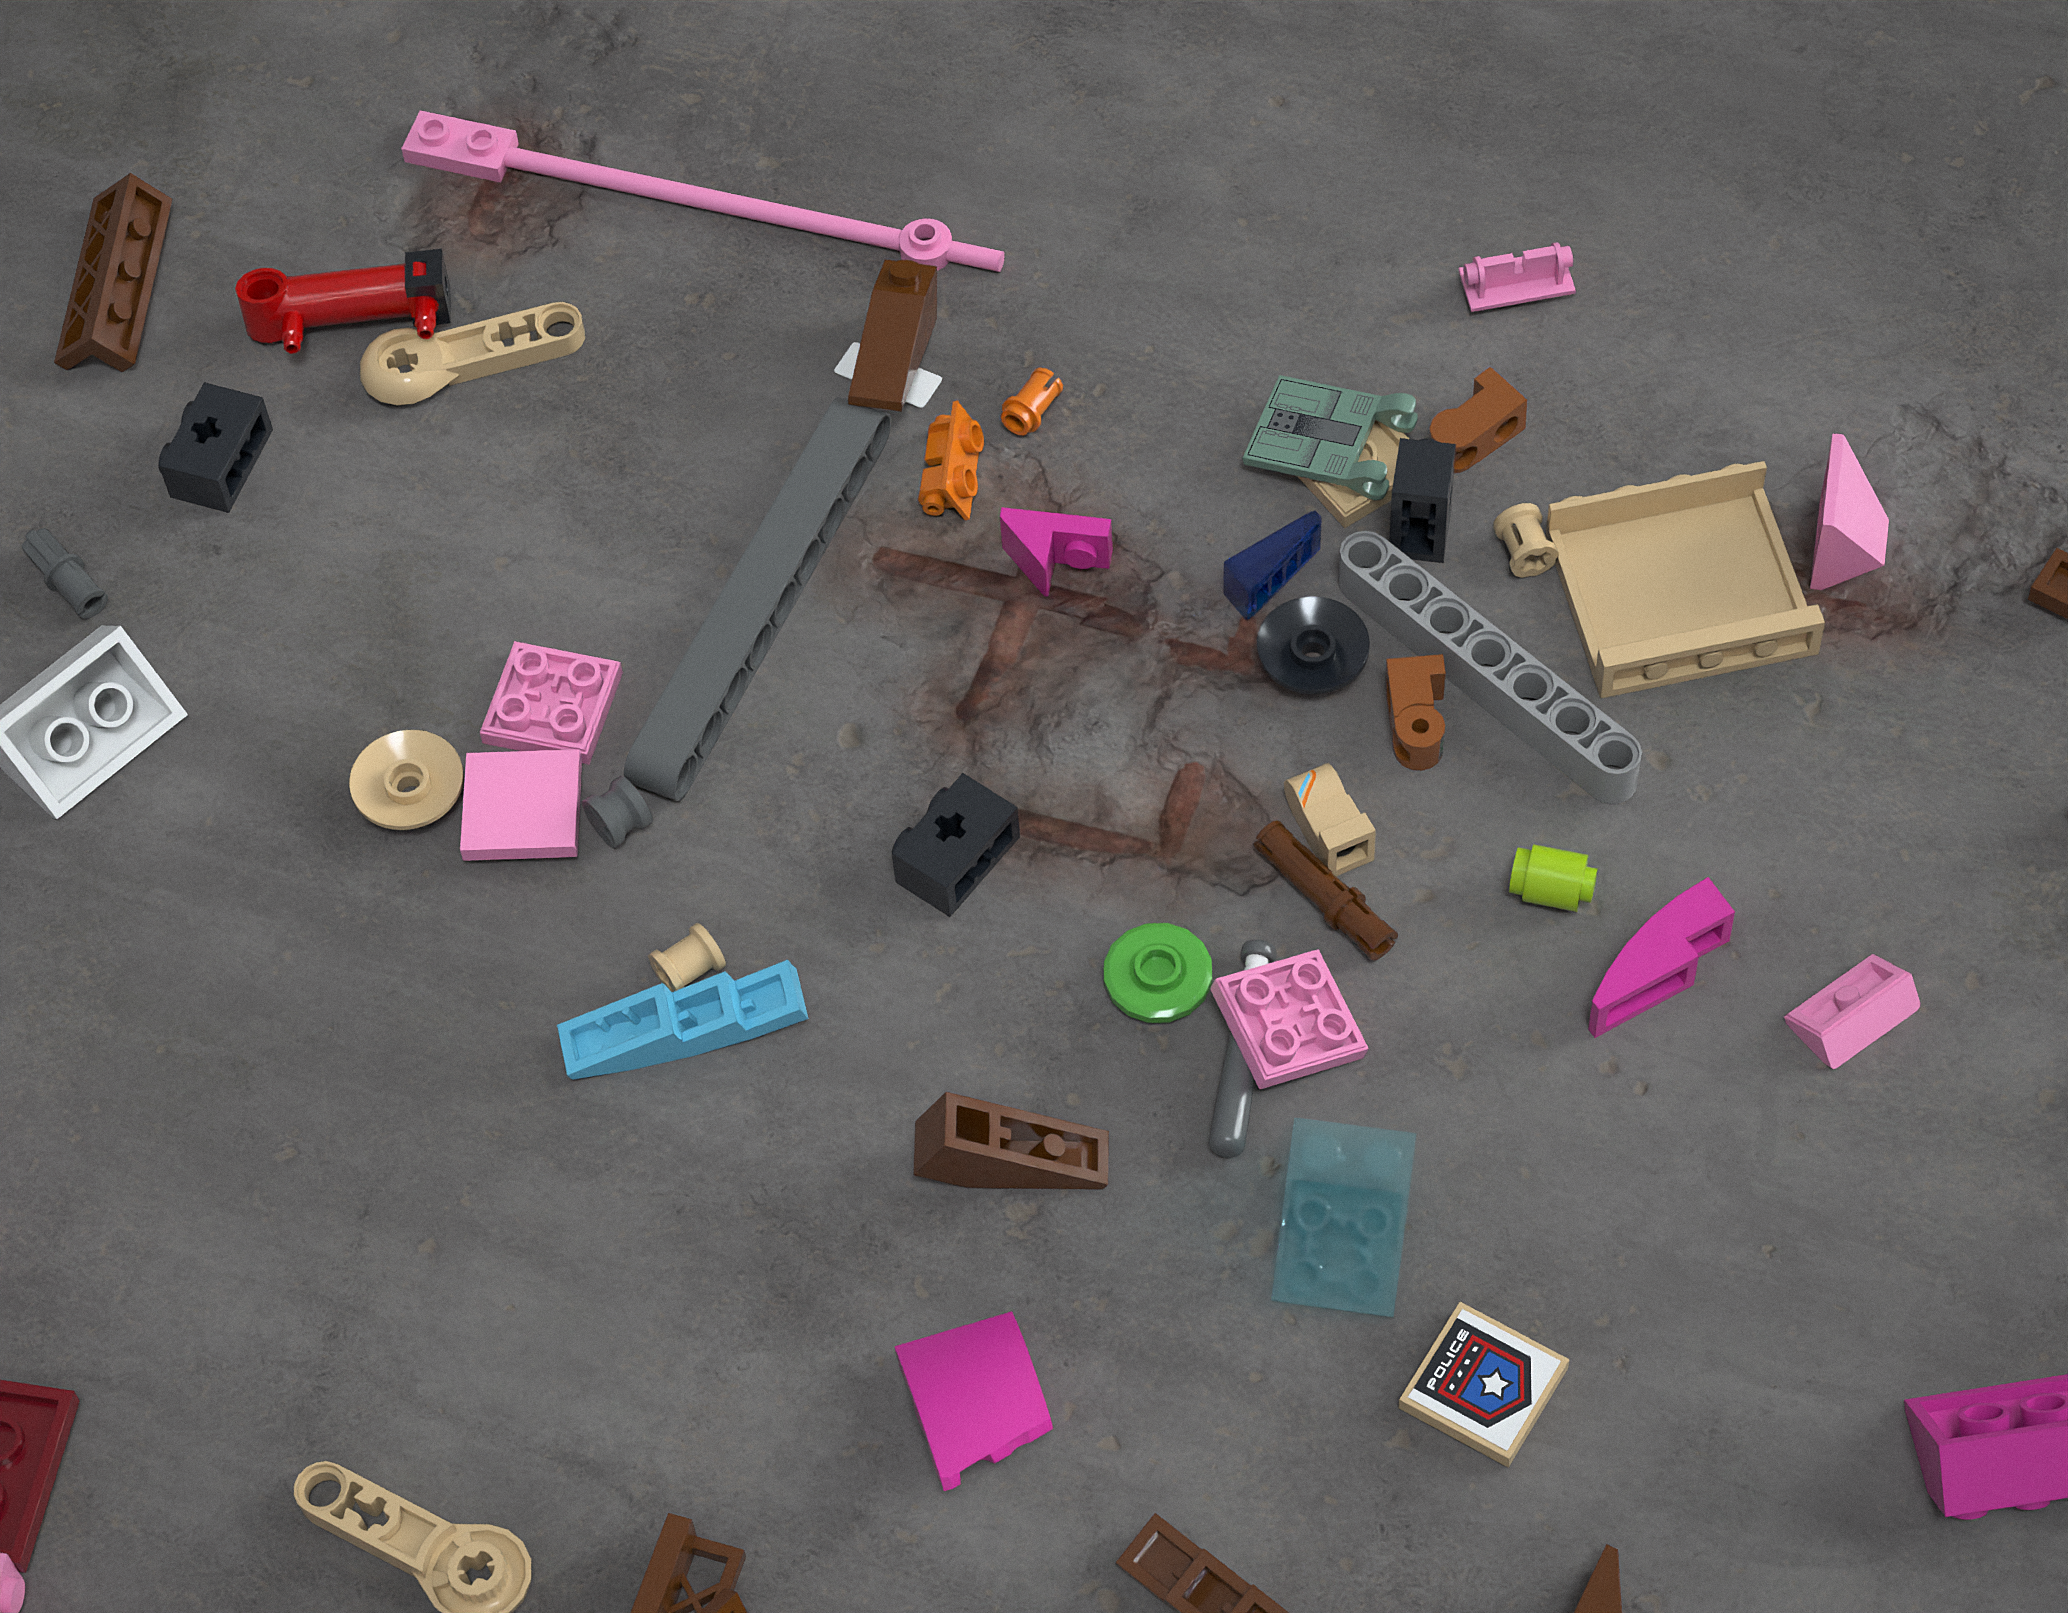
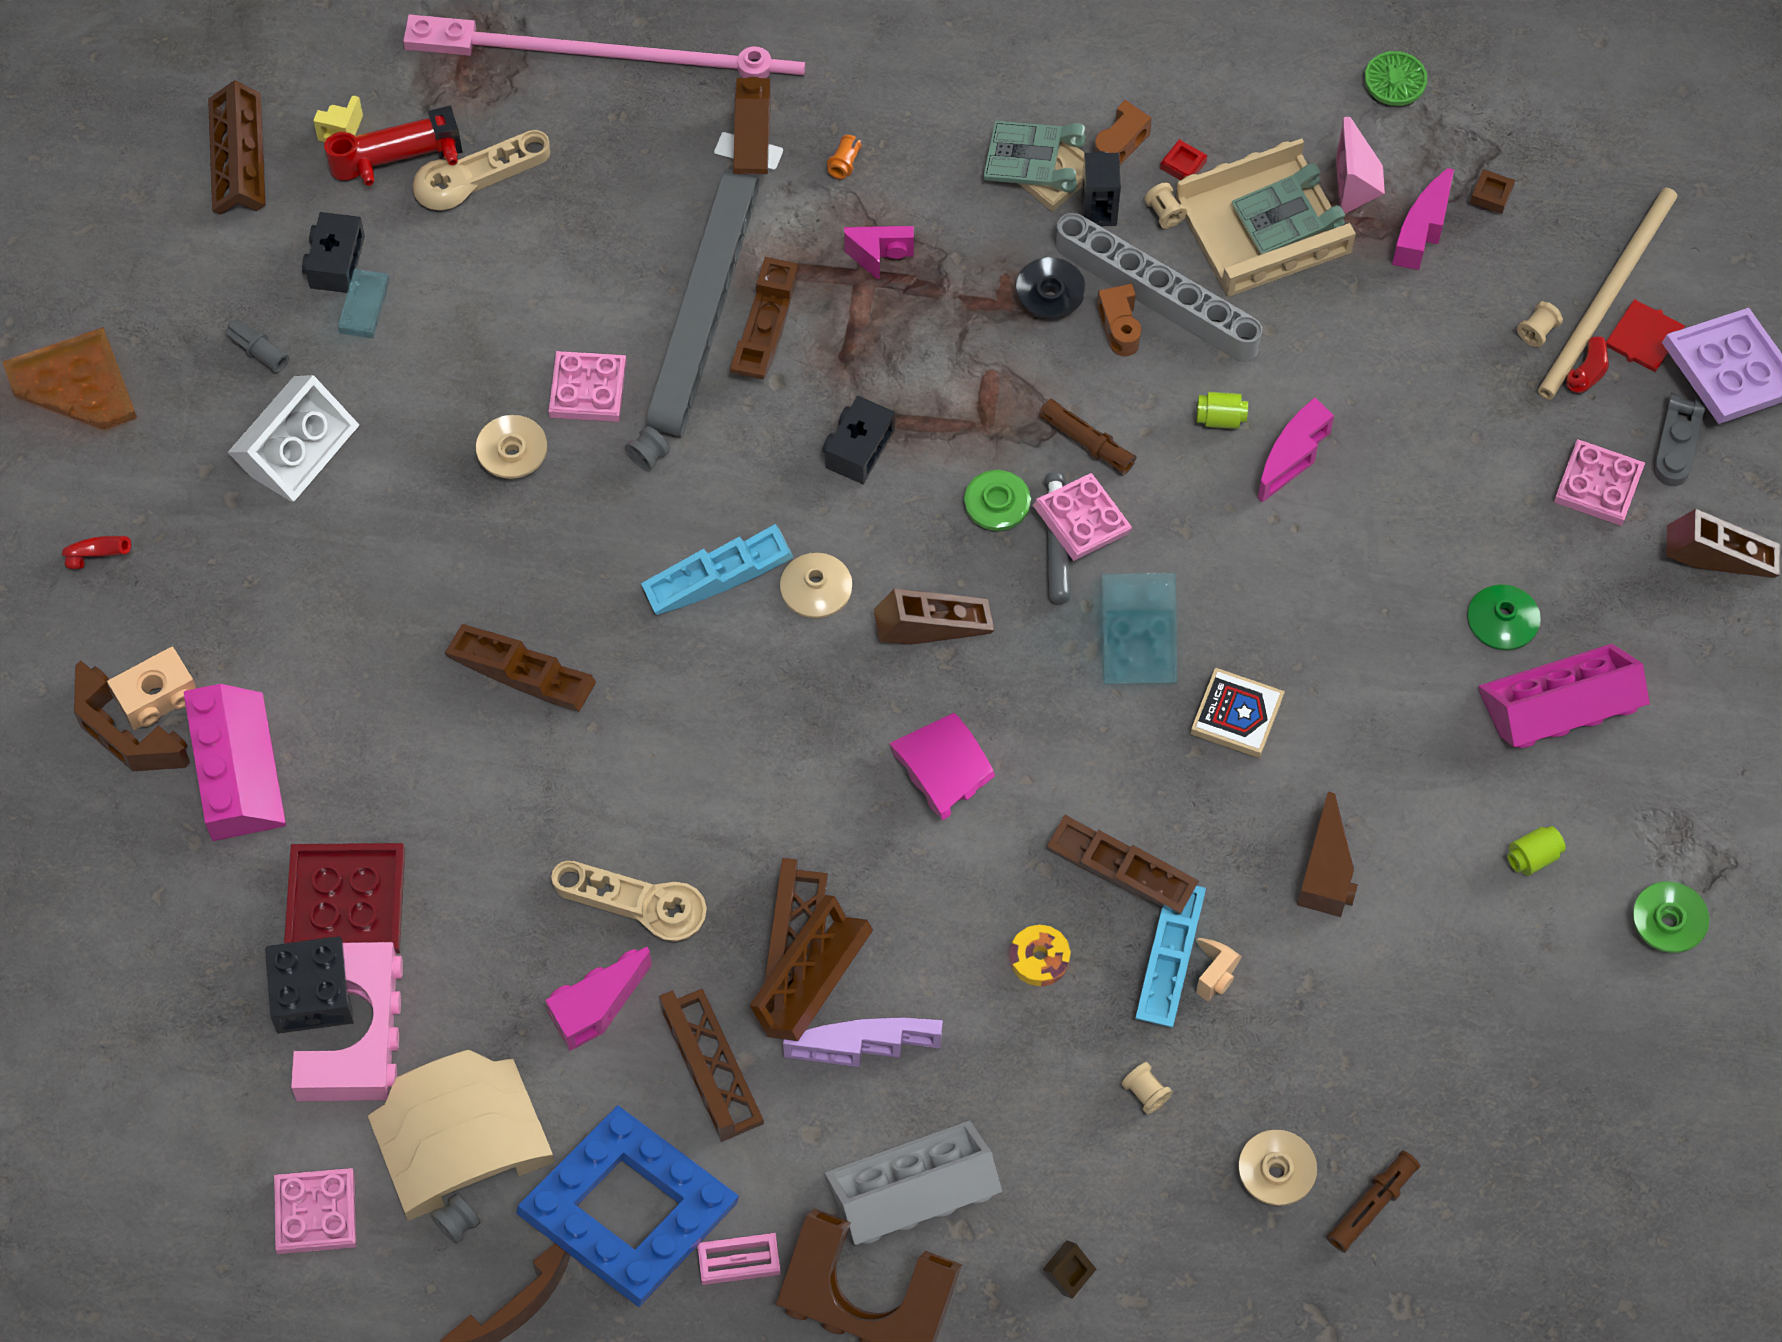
camera: 15 degrees left, 5 degrees up
(242, 530) = (363, 303): none -> clear light blue tile
(278, 250) = (338, 119): none -> light yellow panel
(334, 1133) = (520, 668): none -> reddish brown slope
(521, 805) = (586, 452): bright pink tile -> none
(687, 959) = (712, 532): tan bush -> none
(843, 1089) = (818, 598): none -> tan dish
(853, 636) = (766, 319): none -> reddish brown slope
(955, 445) = (803, 190): orange hinge -> none
(1267, 566) = (1011, 243): clear blue slope -> none
(1330, 819) = (1082, 392): tan leg -> none
(1512, 281) = (1128, 40): bright pink hinge -> none
(1569, 474) = (1183, 160): none -> red tile
(1715, 575) = (1283, 213): none -> sand green flag
(1854, 1010) = (1411, 464): bright pink slope -> none
(1939, 389) = (1395, 78): none -> bright green wheel
(1943, 619) = (1423, 222): none -> dark pink slope
(1965, 1312) = (1503, 630): none -> green dish

